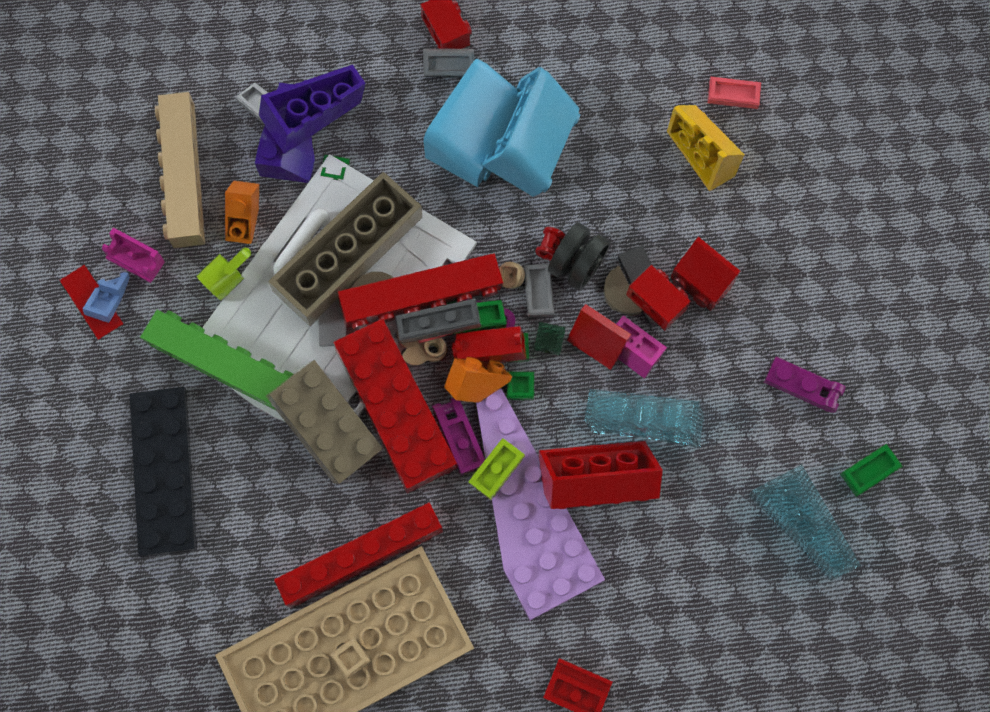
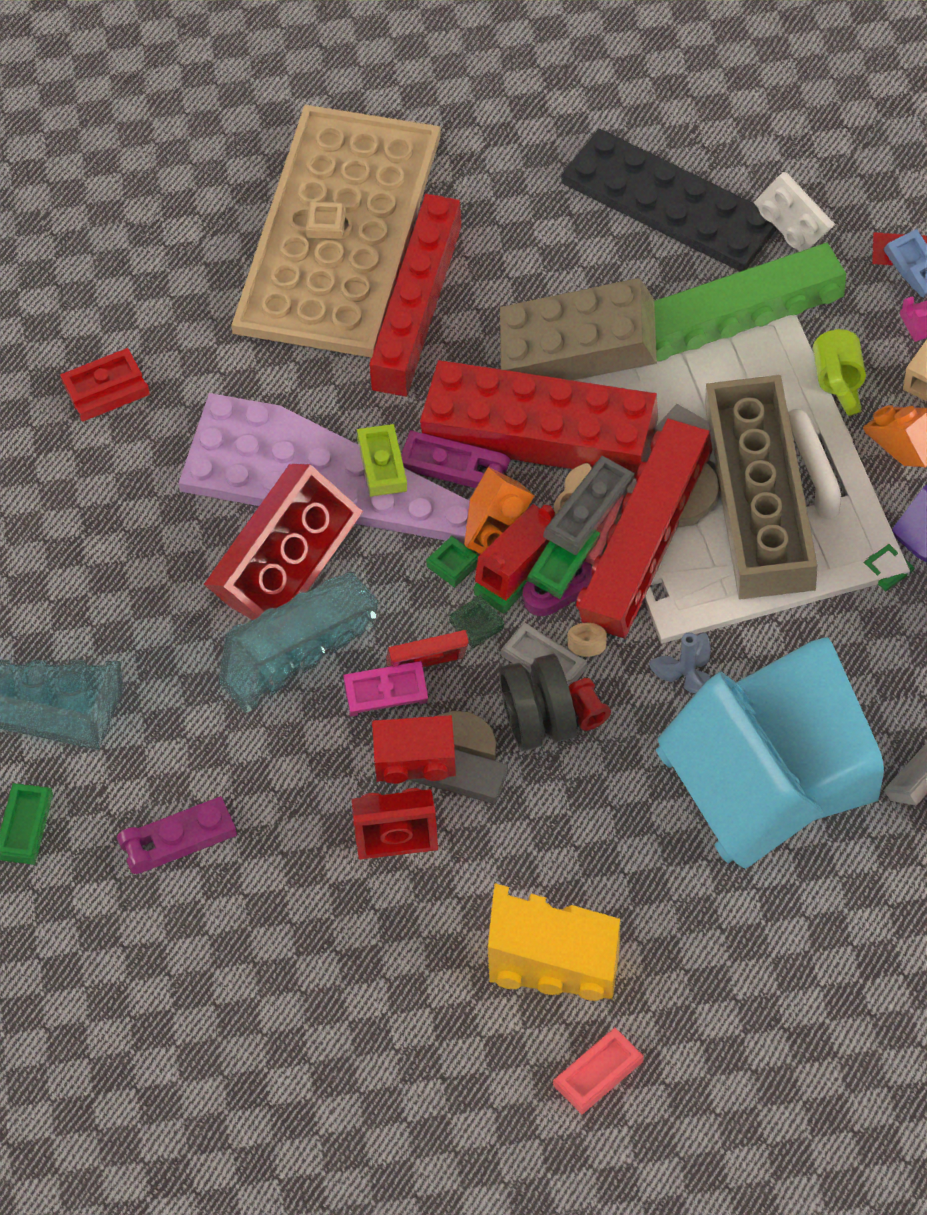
camera: 135 degrees right, 15 degrees down
(125, 378) = (793, 213): none -> white bracket
(485, 207) = (694, 654): none -> sand blue plant

